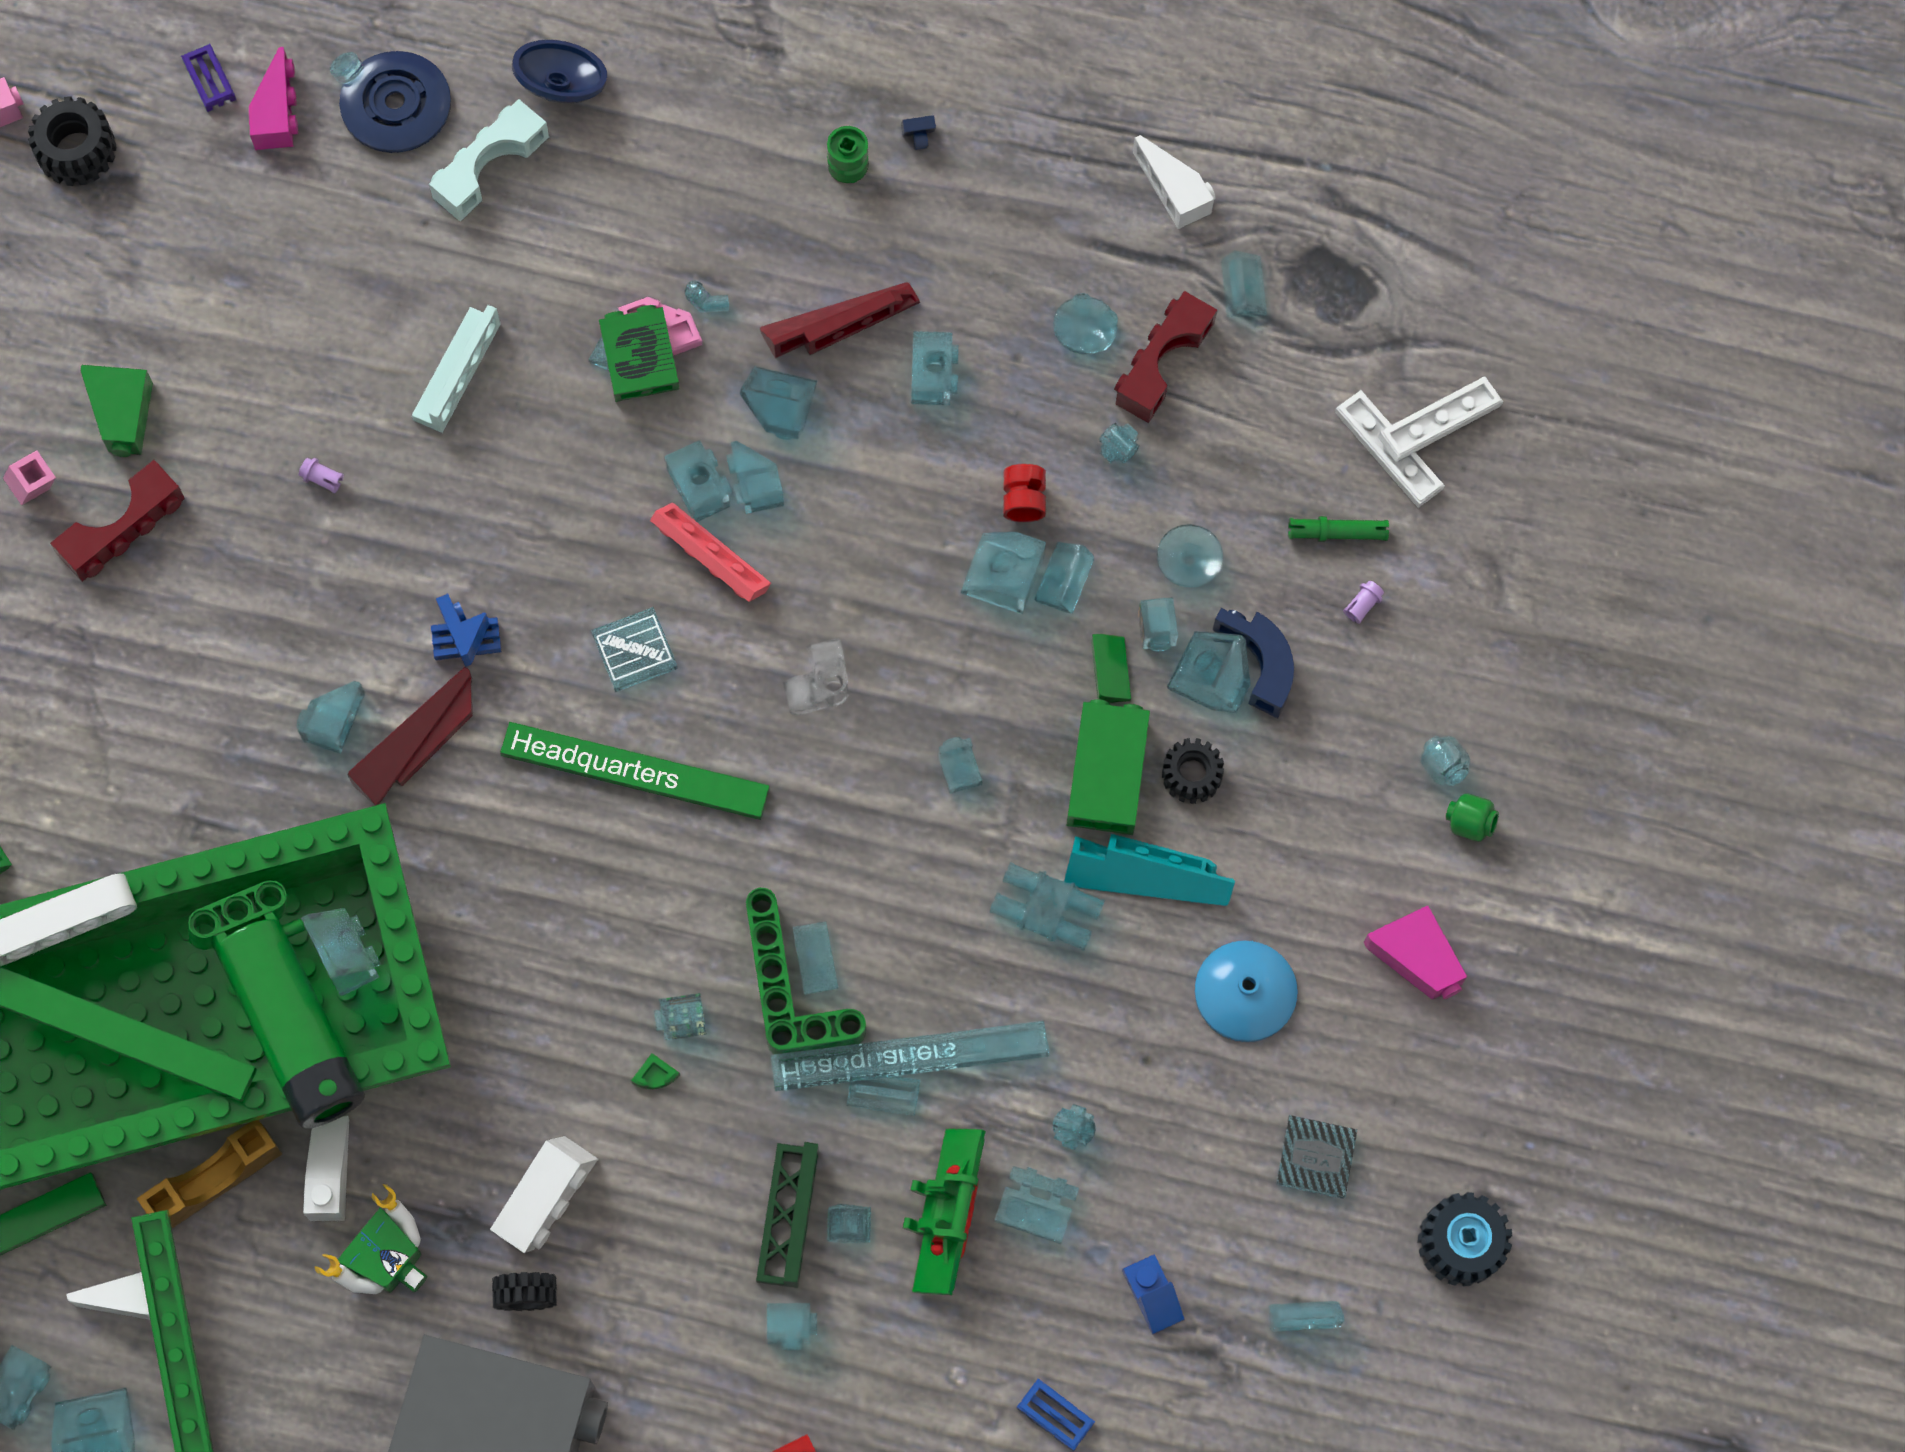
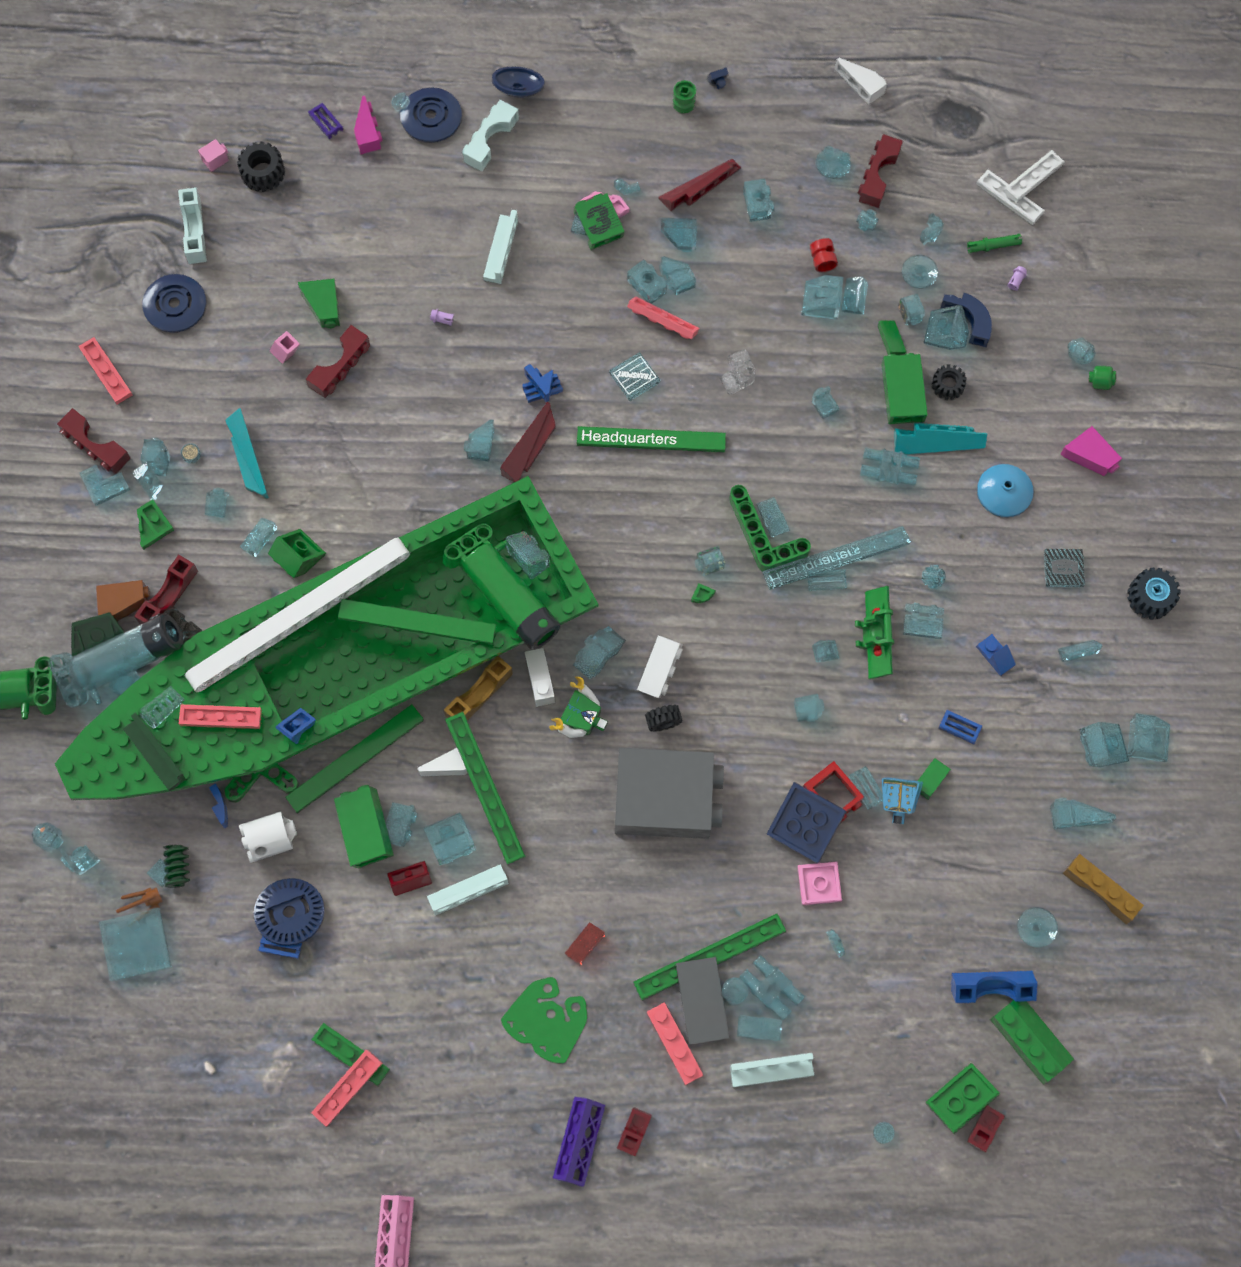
camera: 10 degrees left, 0 degrees up
(439, 1144) = (598, 651): none -> clear light blue brick
(800, 1217) = (799, 648): dark green fence -> none
(1233, 486) = (933, 231): none -> clear light blue bracket
(1243, 285) = (911, 127): clear light blue slope -> none

